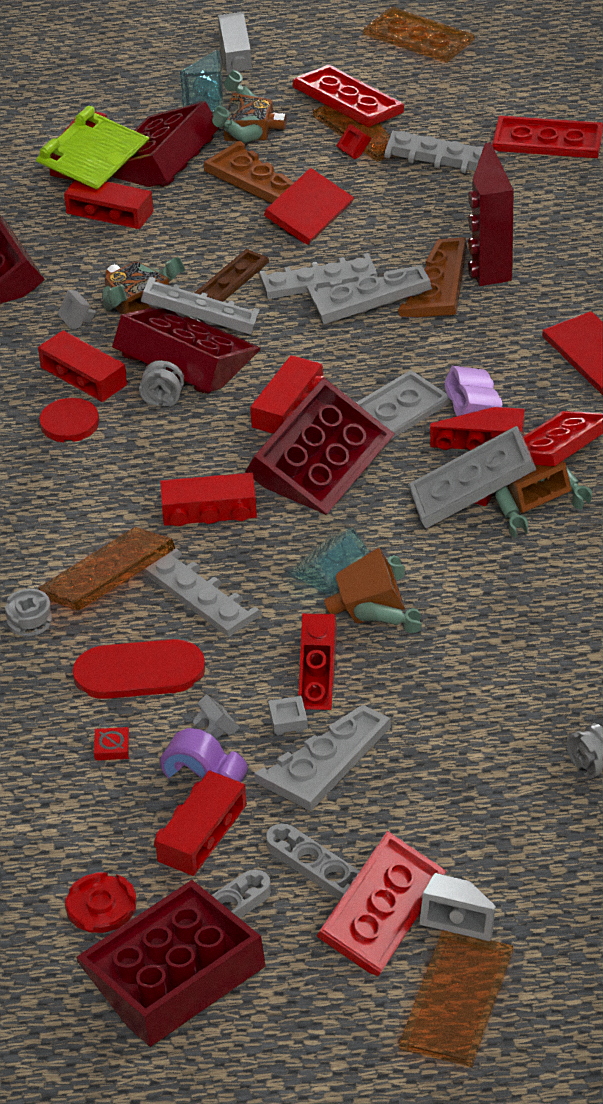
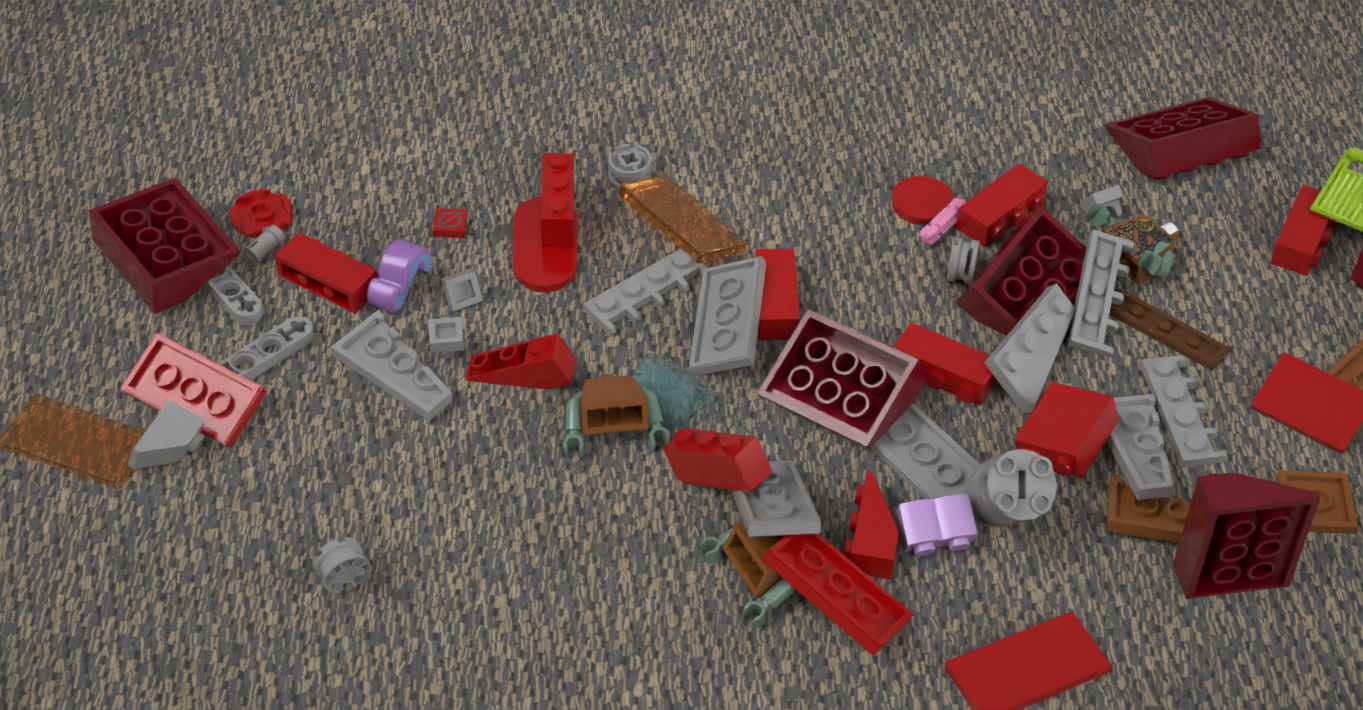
camera: 90 degrees right, 5 degrees up
(96, 645) = (557, 200): none -> red brick
(102, 403) = (941, 223): none -> bright pink axle
(153, 886) = (265, 243): none -> light grey pin
(244, 523) = (727, 316): none -> light grey tile
(272, 339) = (1031, 347): none -> light grey wing
(365, 321) = (1069, 427): none -> red brick
(406, 214) = (1336, 505): none -> dark orange tile
(439, 505) = (717, 459): none -> red brick
(444, 338) = (1012, 487): none -> light grey cylinder

